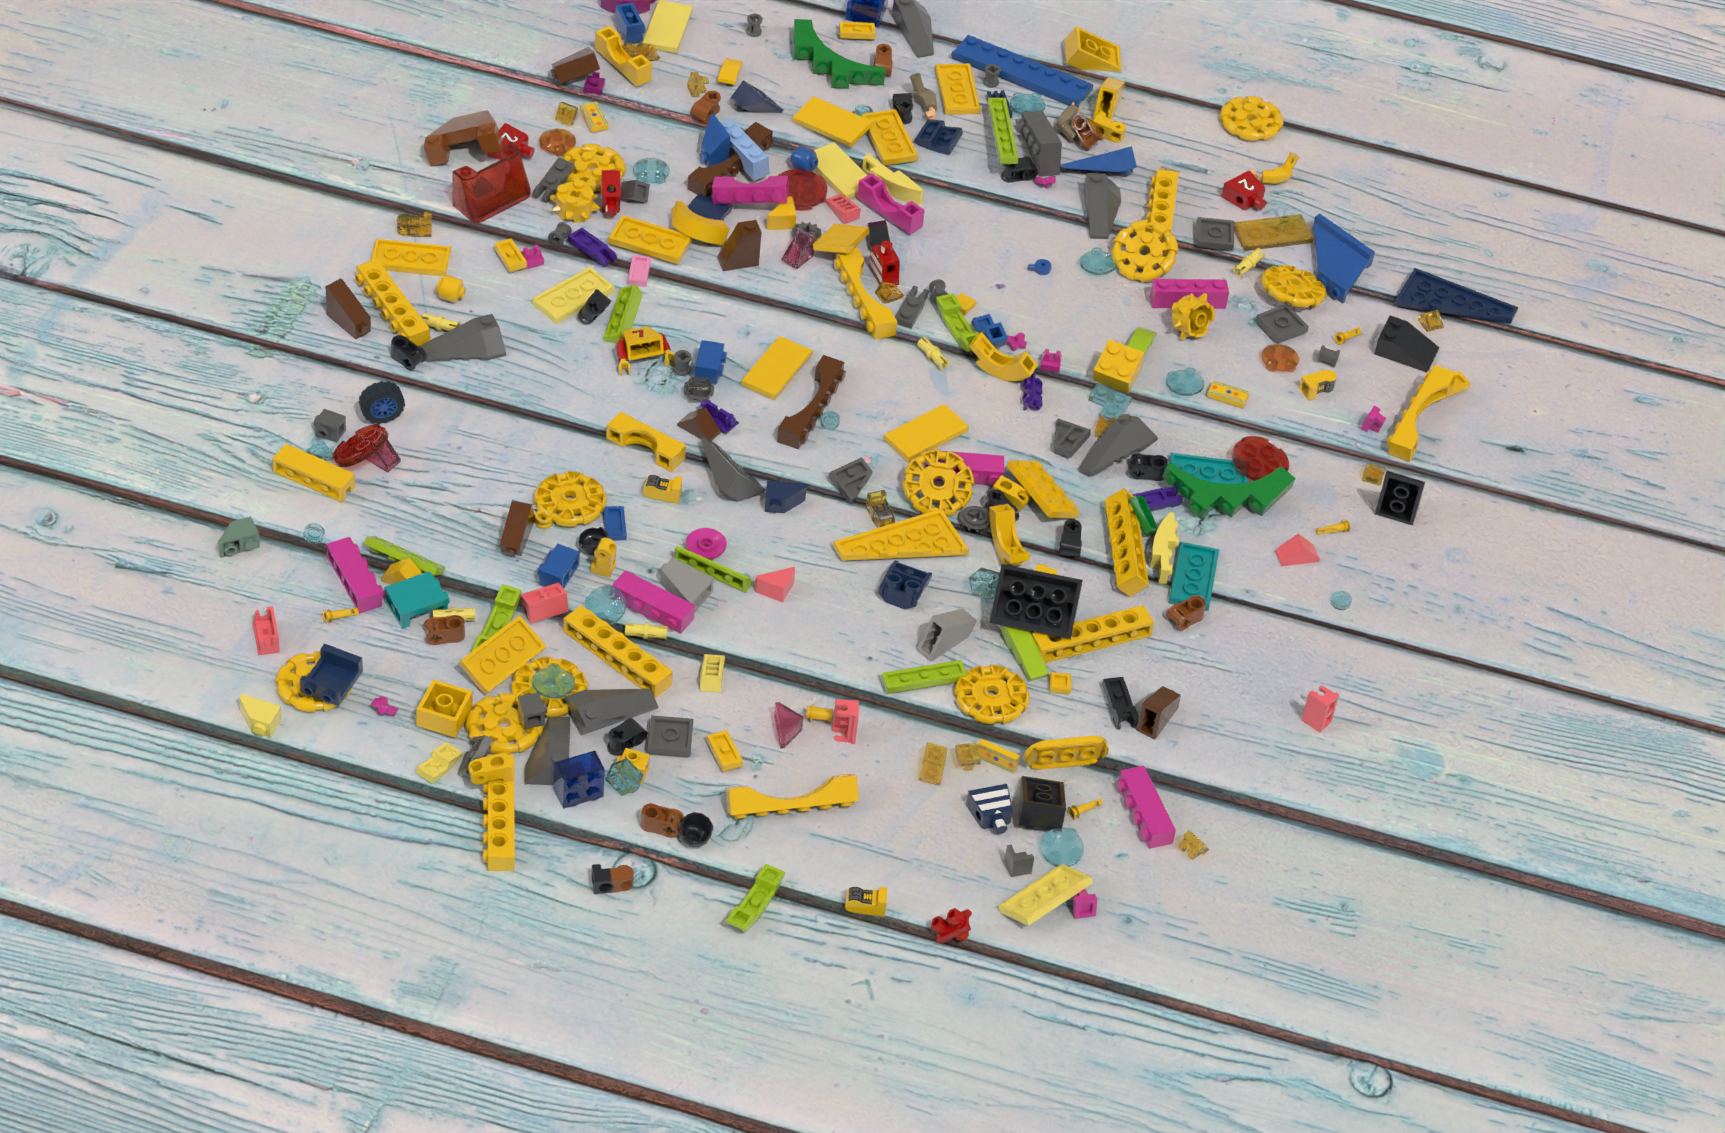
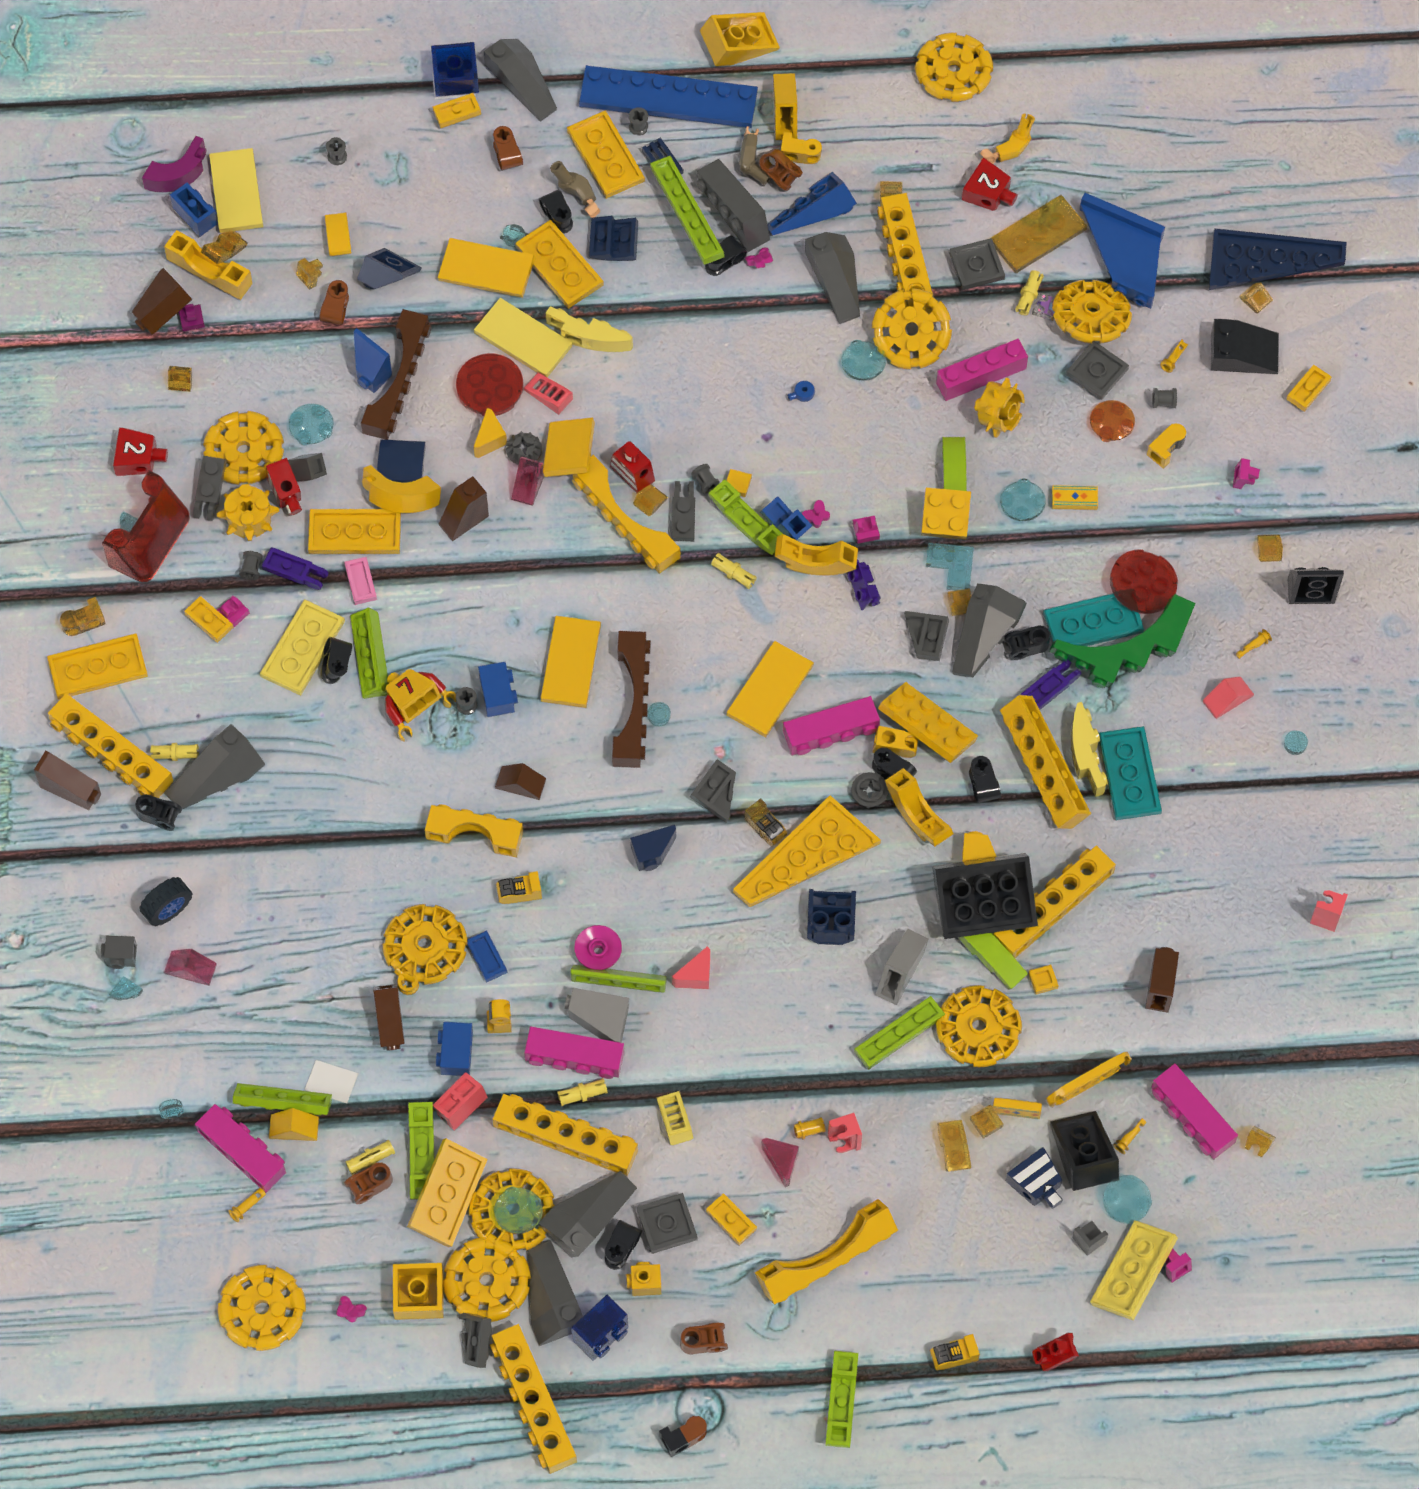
camera: 15 degrees left, 20 degrees up
(239, 537) = (92, 1148): sand green slope -> none
(260, 715) = (227, 1379): light yellow slope -> none
(266, 632) = (181, 1264): coral hinge -> none
(313, 472) = (132, 1025): yellow brick -> none
(332, 675) = (281, 1301): dark blue panel -> none
(360, 446) = (169, 971): clear red tile -> none
(415, 597) = (321, 1153): teal panel -> none
(440, 763) = (440, 1358): light yellow slope -> none
(450, 288) = (165, 699): yellow head -> none
(452, 560) = (331, 1080): none -> white sticker
(463, 129) = (75, 454): dark orange wedge -> none
(490, 769) = (505, 1359): yellow leg -> none
(531, 710) = (512, 1258): dark grey brick -> none
(557, 141) = (186, 422): clear orange dish -> none
(590, 538) = (476, 994): black hair -> none
(594, 117) = (212, 367): yellow tile -> none
(607, 603) = (526, 1077): clear light blue dish -> none
(624, 777) = (643, 1302): clear light blue brick -> none
(695, 829) = (745, 1338): black hair -> none
(698, 389) = (500, 732): clear smoke head -> none
(723, 419) = (540, 762): dark purple hinge -> none
(730, 191) = (465, 413): dark pink arch -> none
(730, 475) = (584, 842): dark grey wedge -> none
(752, 157) = (418, 365): light blue arch -> none
(804, 159) = (479, 341): blue head -> none
(825, 61) = (466, 182): green arch -> none
(874, 193) = (581, 363): dark pink arch -> none
(878, 232) = (606, 420): black slope -> none
(932, 493) = (800, 763): yellow plate -> none
(984, 583) = (917, 881): clear light blue brick -> none
(1027, 102) = (695, 148): clear light blue dish -> none
(1120, 702) = (1115, 980): black plate -> none
(1144, 515) = (1051, 717): green tile -> none
(1187, 612) = (1140, 834): dark orange piece -> none
(1255, 275) = (1043, 306): none -> clear tile
(1436, 387) = (1290, 488): yellow arch -> none

